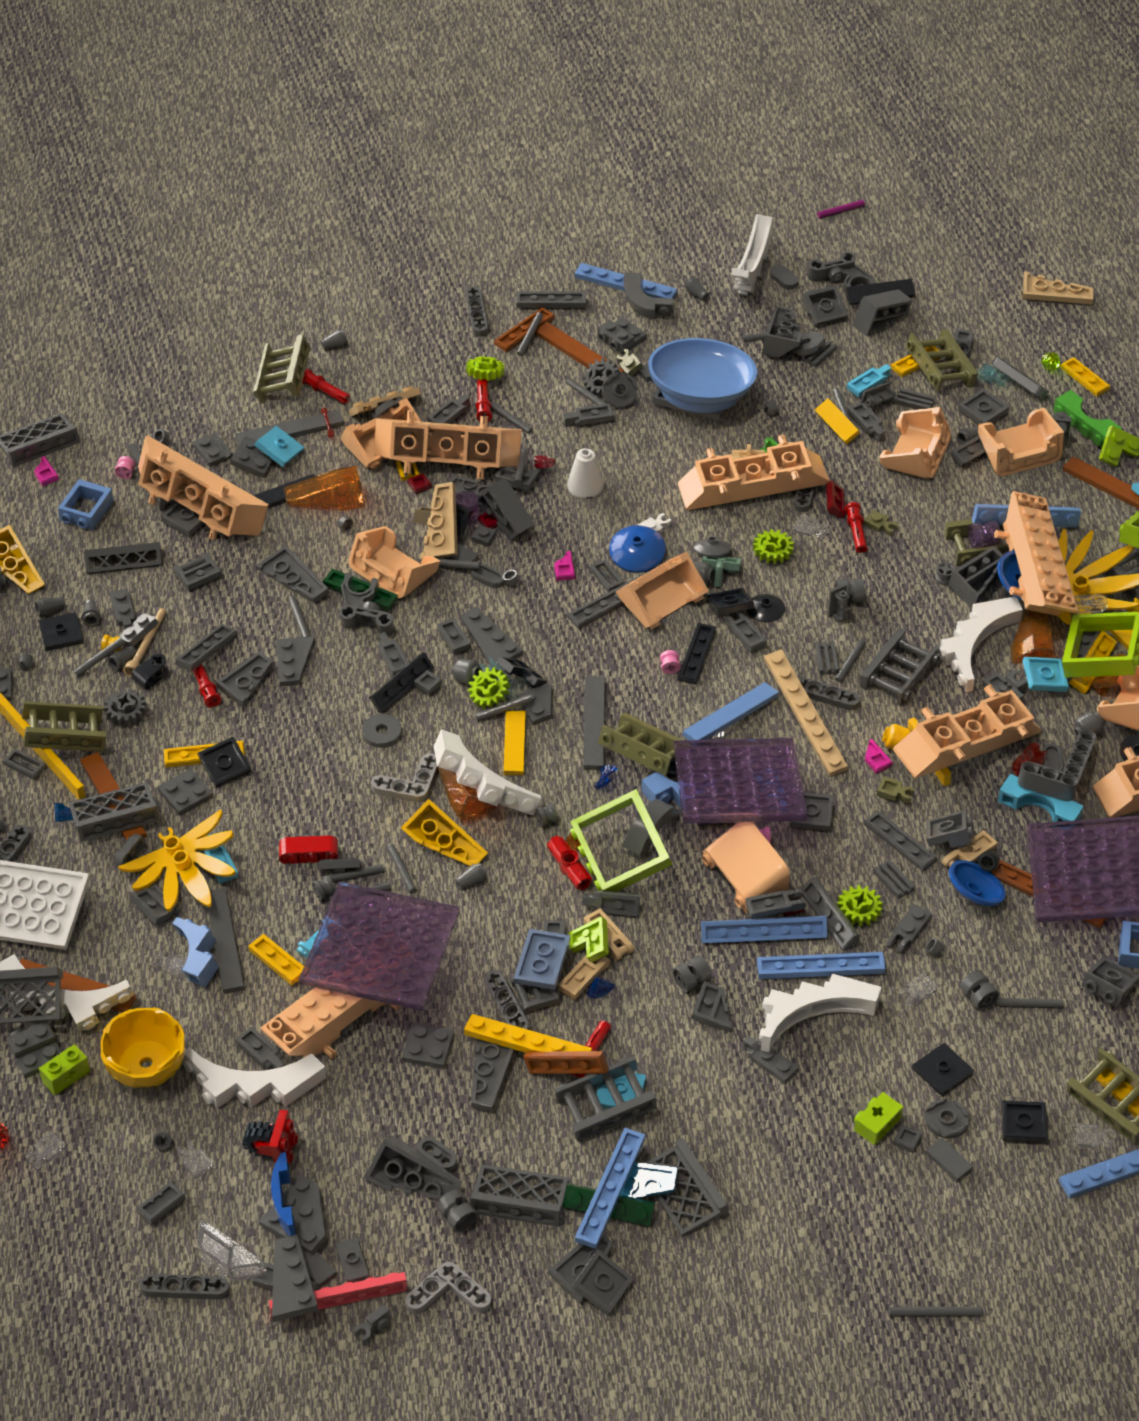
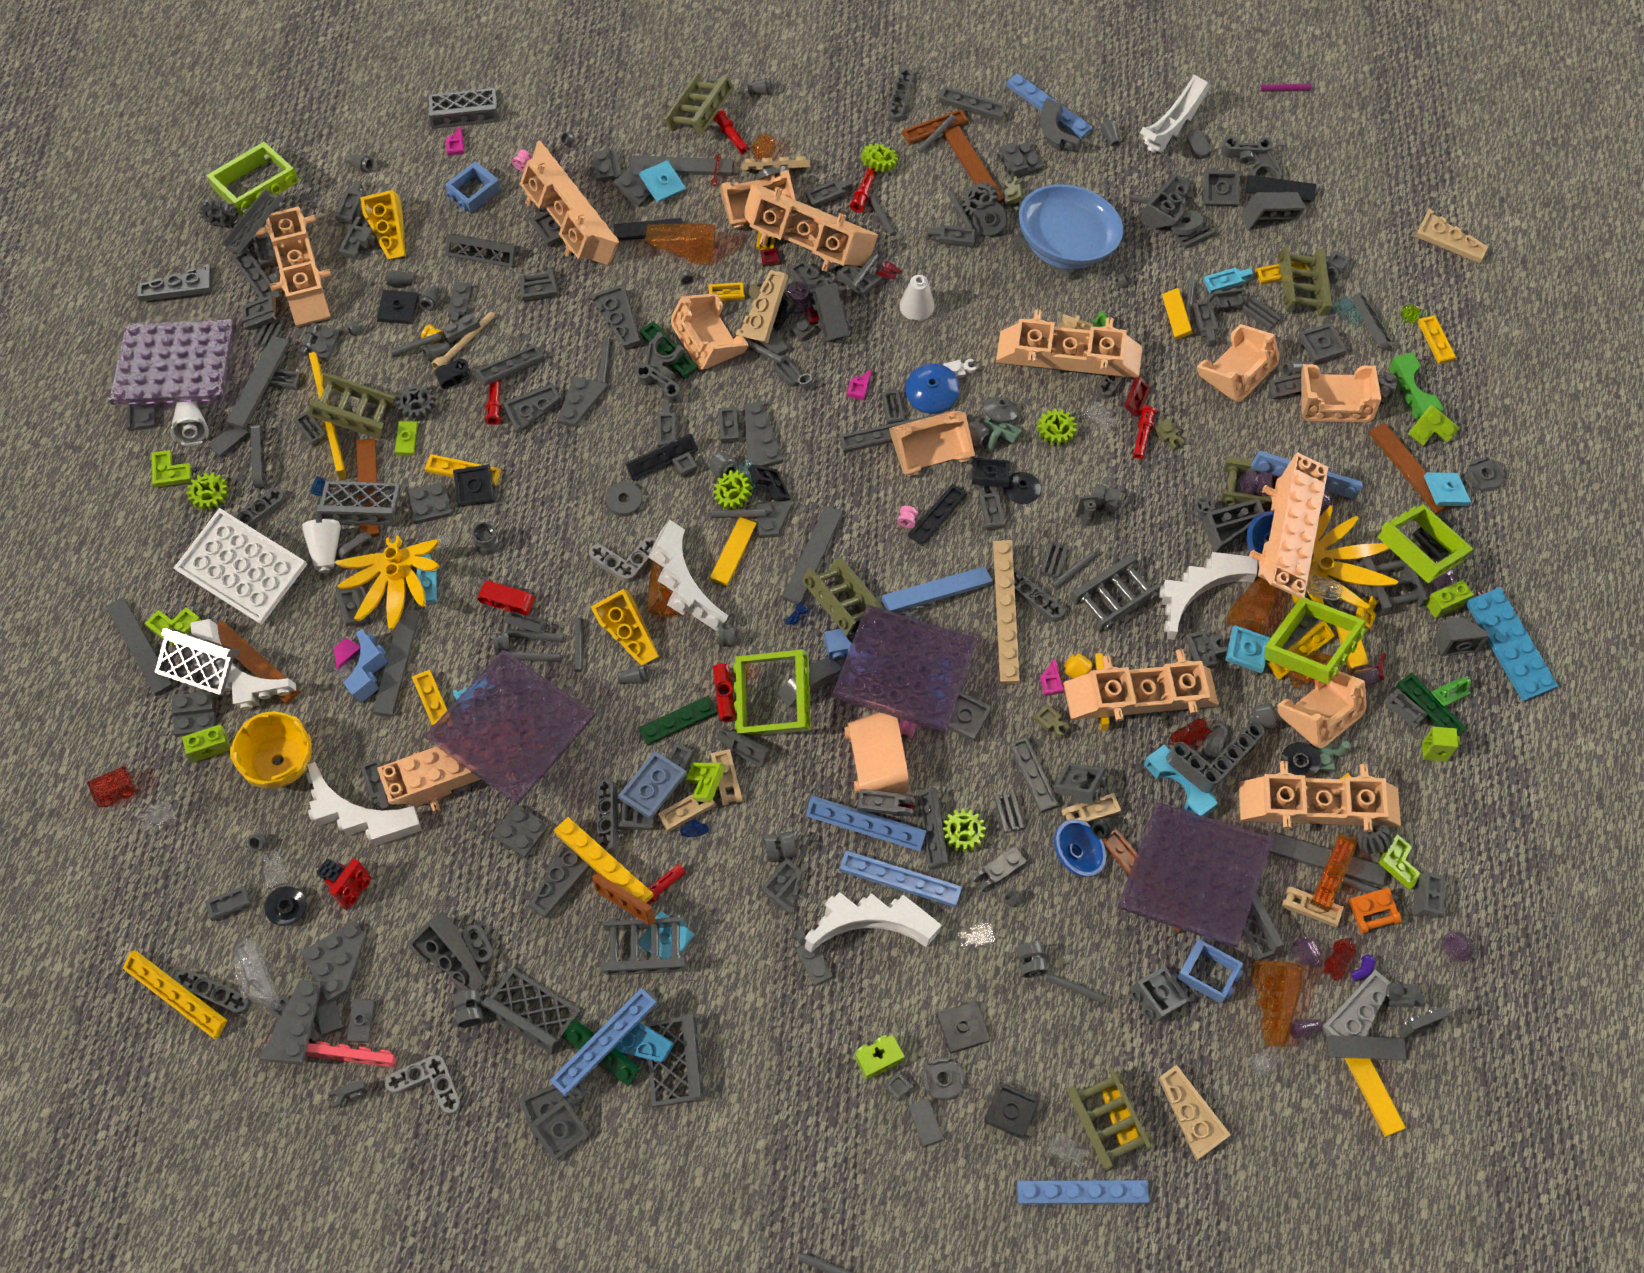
camera: 20 degrees right, 15 degrees up
(94, 855) = (322, 543): none -> white cone
(130, 743) = (406, 438): none -> lime plate
(147, 1300) = (175, 994): none -> yellow tile
(167, 946) = (345, 652): none -> dark pink tile
(222, 1177) = (279, 899): none -> black dish
(261, 802) = (485, 538): none -> dark grey wheel
(281, 1176) = (334, 916): blue slope -> none
(364, 389) = (763, 146): none -> clear orange head
(394, 526) = (727, 294): none -> yellow tile
(534, 902) = (677, 720): none -> dark green plate

